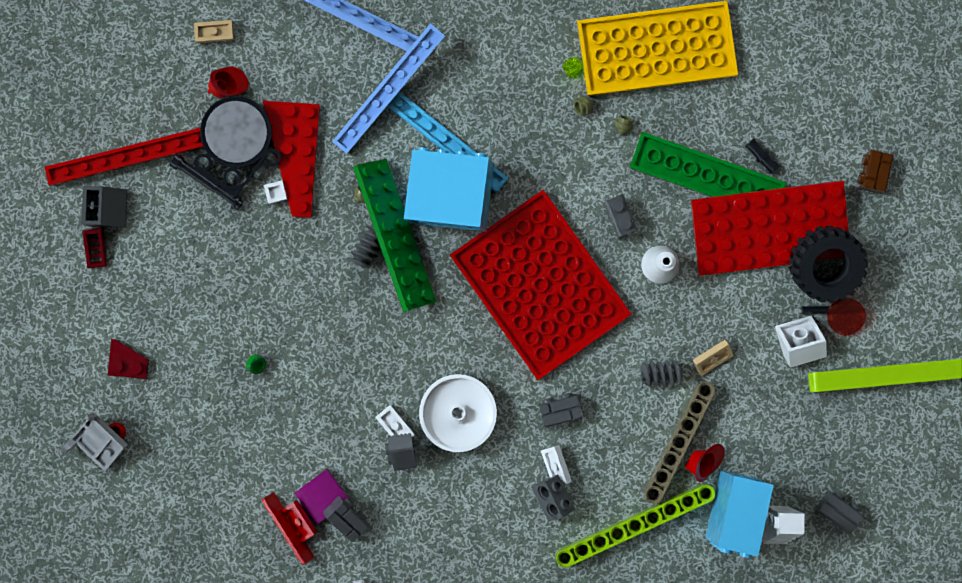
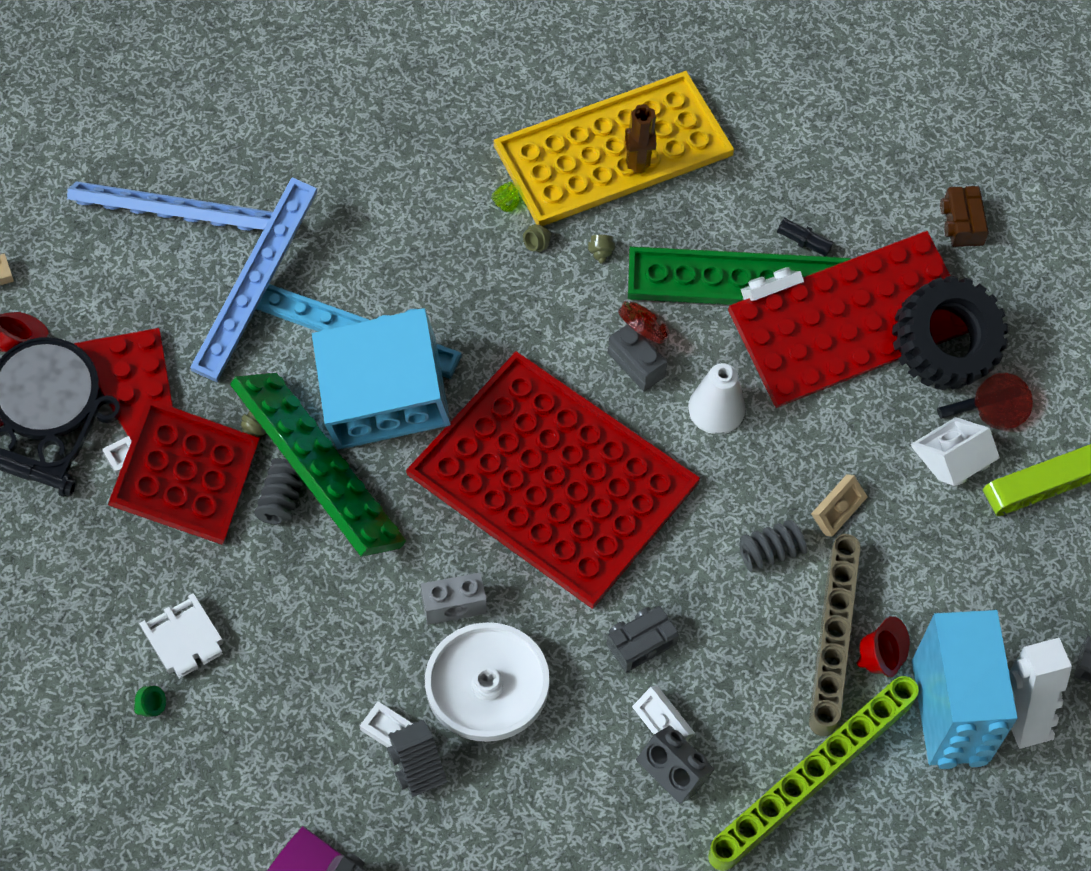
camera: 15 degrees left, 25 degrees down
(285, 327) = (183, 637): none -> white plate
(310, 218) = (184, 471): none -> red plate
(453, 351) = (453, 598): none -> light grey brick
(631, 194) = (643, 322): none -> clear red tile
(673, 61) = (640, 138): none -> reddish brown piece
(725, 192) = (782, 279): none -> white plate

